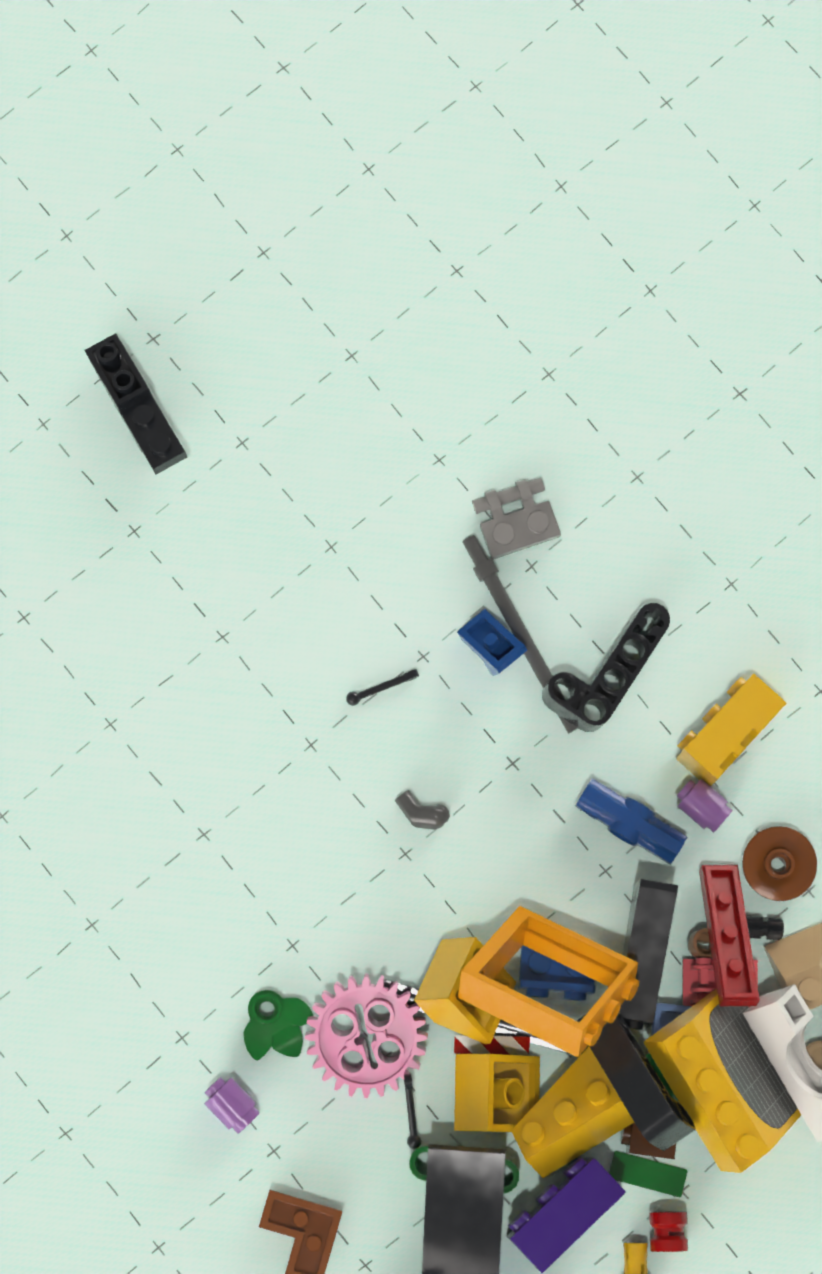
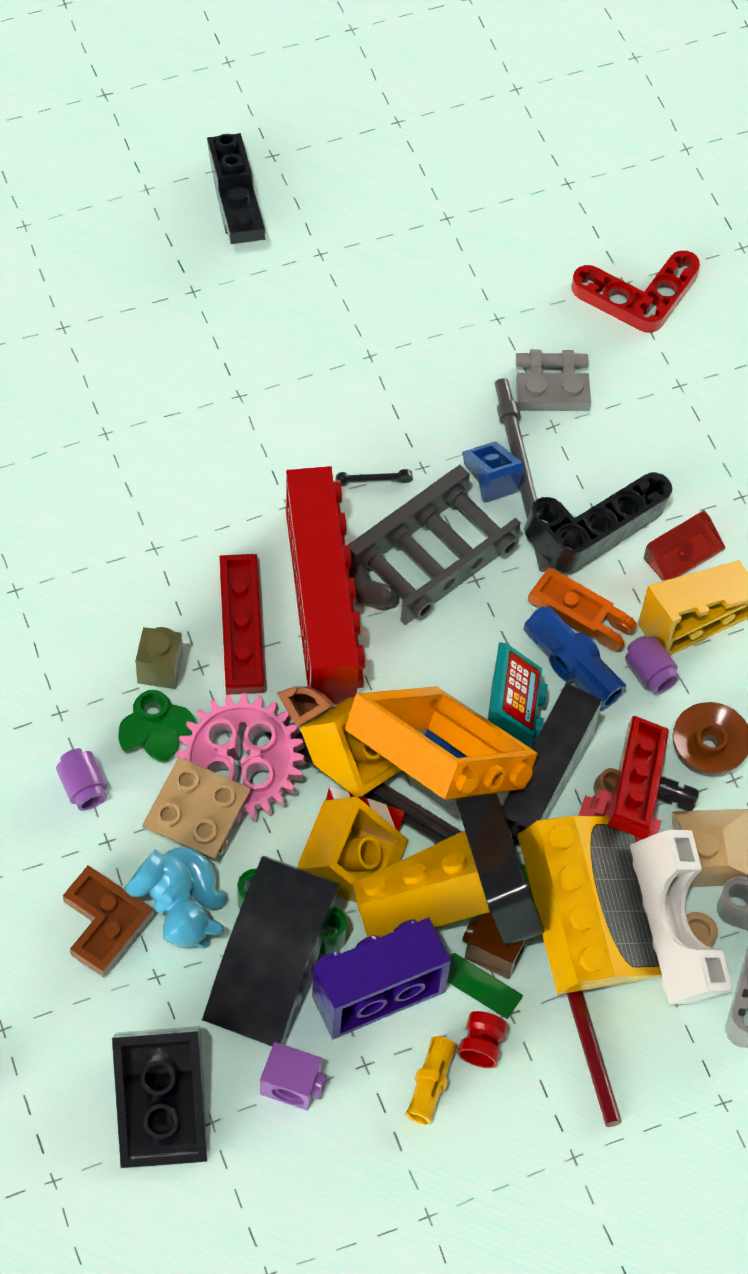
camera: 20 degrees right, 20 degrees down
(255, 957) = (159, 657): none -> olive brick
(314, 889) = (241, 624): none -> red tile
(345, 1102) = (196, 808): none -> tan hinge
(348, 1184) = (169, 881): none -> medium azure animal
(378, 835) = (323, 583): none -> red brick
(408, 970) = (304, 703): none -> nougat brick
(414, 1140) = (265, 811): black hinge -> none
(428, 747) = (424, 511): none -> dark grey fence
(568, 394) = (639, 301): none -> red beam
(593, 894) = (516, 695): none -> slope
(618, 765) = (582, 608): none -> orange hinge
(696, 666) = (684, 547): none -> clear red slope
(772, 1218) = (594, 1059): none -> dark red bar

